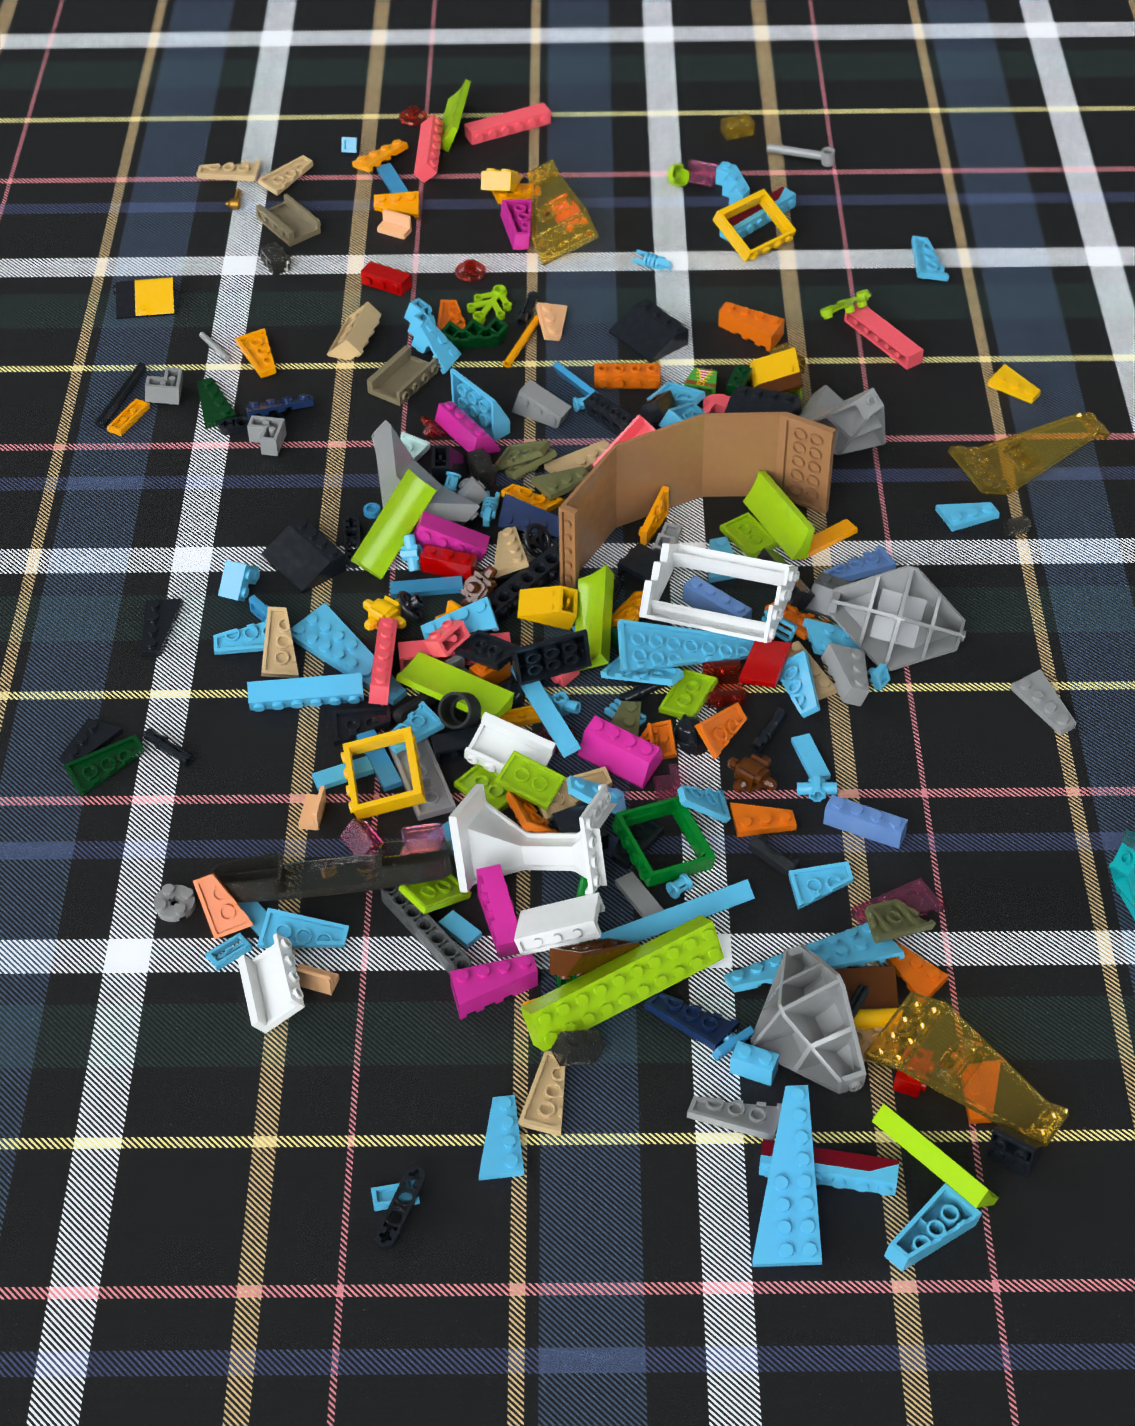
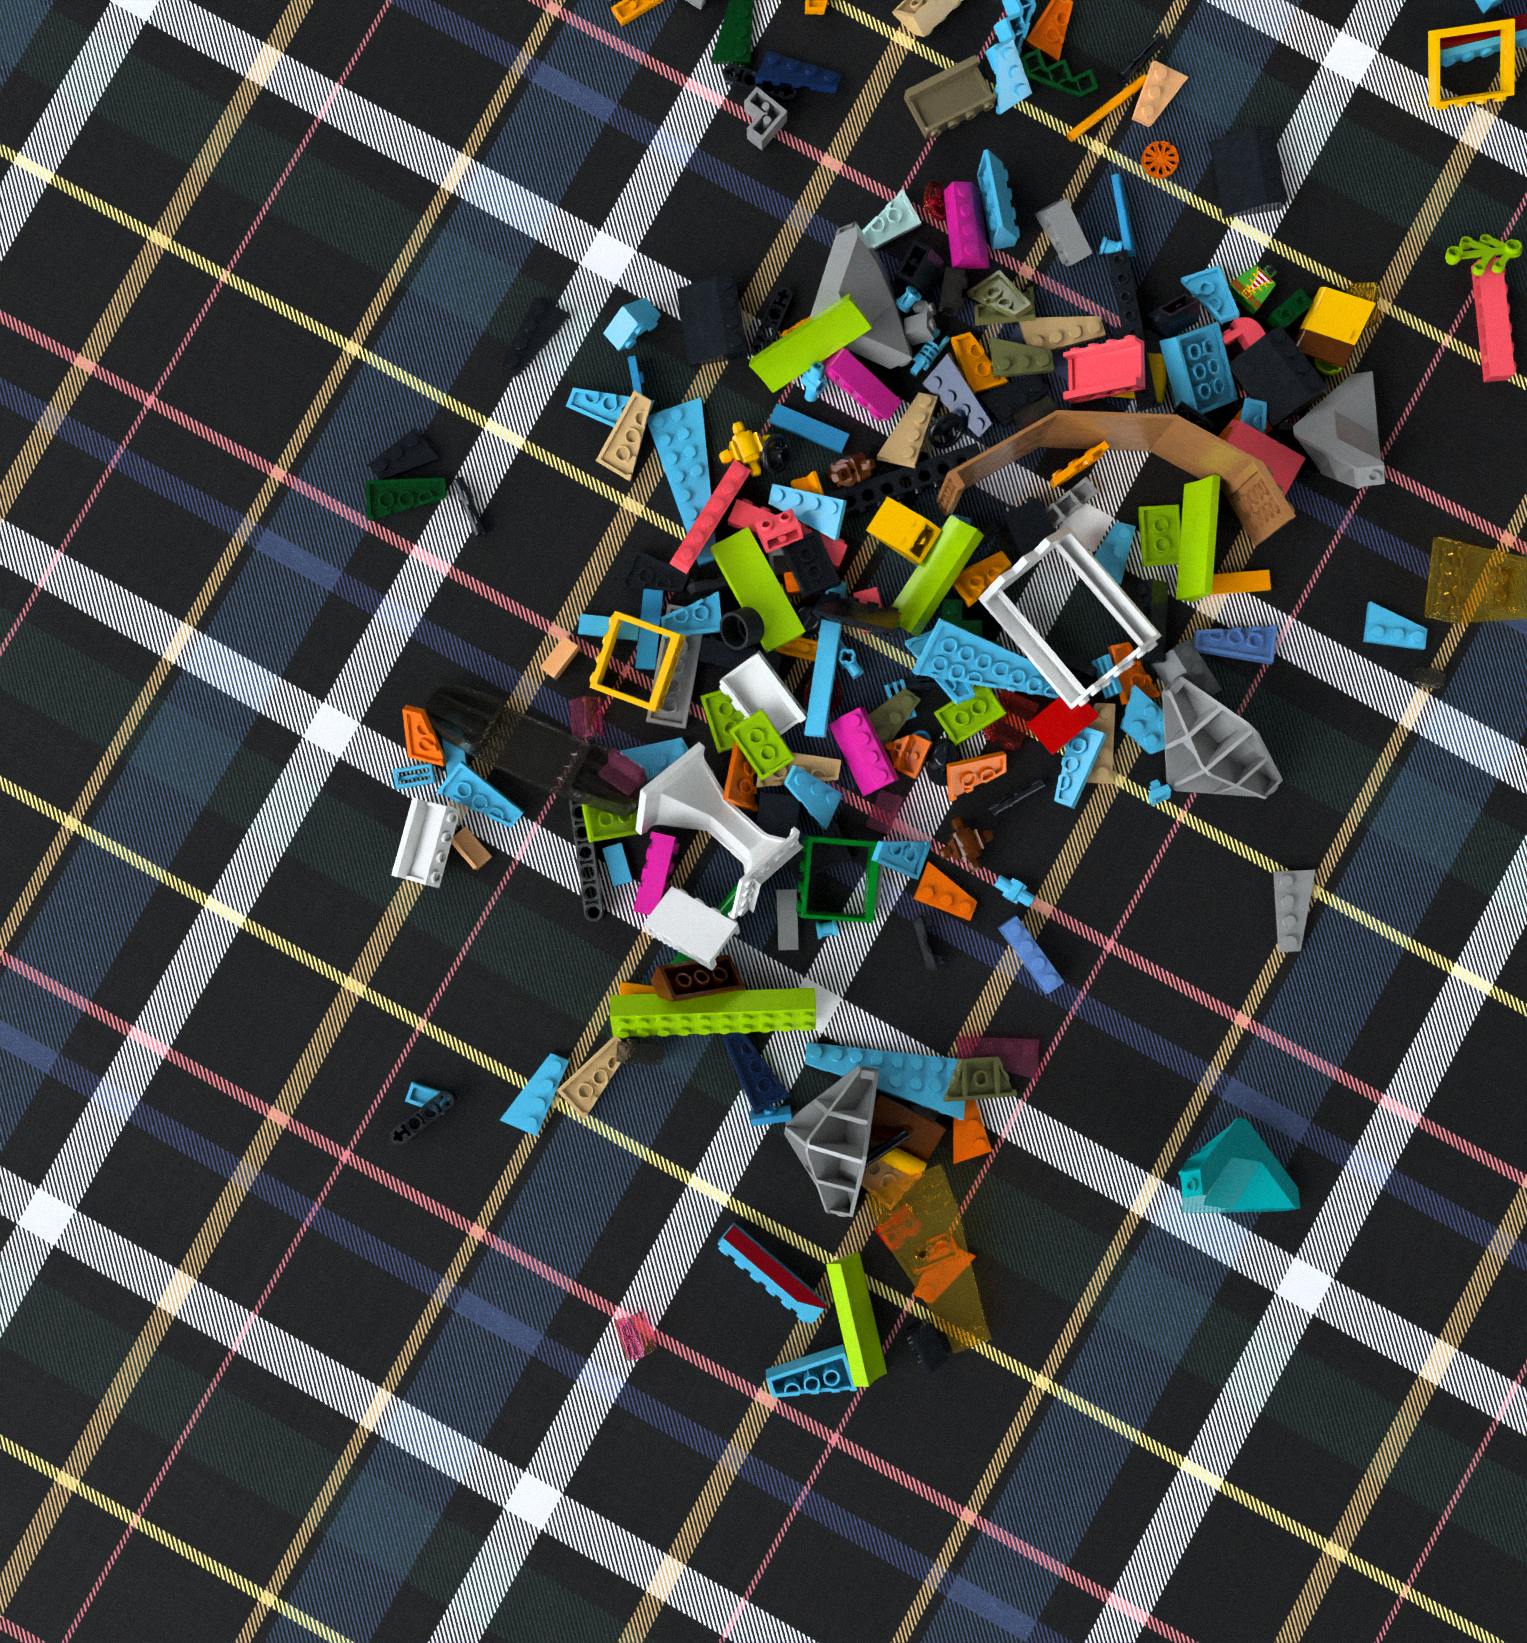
camera: 30 degrees right, 40 degrees up
(172, 893) = (385, 687): light grey plate -> none
(305, 692) = (623, 511): medium azure brick -> none
(372, 510) = (811, 287): dark azure tile -> none
(447, 562) = (844, 412): red brick -> none
(492, 982) = (604, 941): dark pink wedge -> none
(497, 292) = (1108, 25): lime plant -> none
(580, 350) = (1159, 159): none -> orange wheel
(627, 375) = (1181, 231): orange brick -> none
(652, 260) = (1325, 52): medium azure hinge -> none
(682, 913) = (806, 960): medium azure tile -> none
(709, 598) = (1067, 615): medium blue brick -> none
(736, 1293) = (635, 1336): none -> clear pink panel
(749, 1119) = (734, 1185): light grey wing -> none
(752, 324) = (1363, 225): orange wedge -> none
(754, 1063) = (775, 1146): medium azure brick -> none
(789, 1213) = (718, 1293): medium azure wing -> none
(810, 756) = (1033, 850): medium azure tile -> none
(818, 881) = (947, 992): medium azure wing -> none
(849, 672) = (1131, 777): light grey wedge -> none

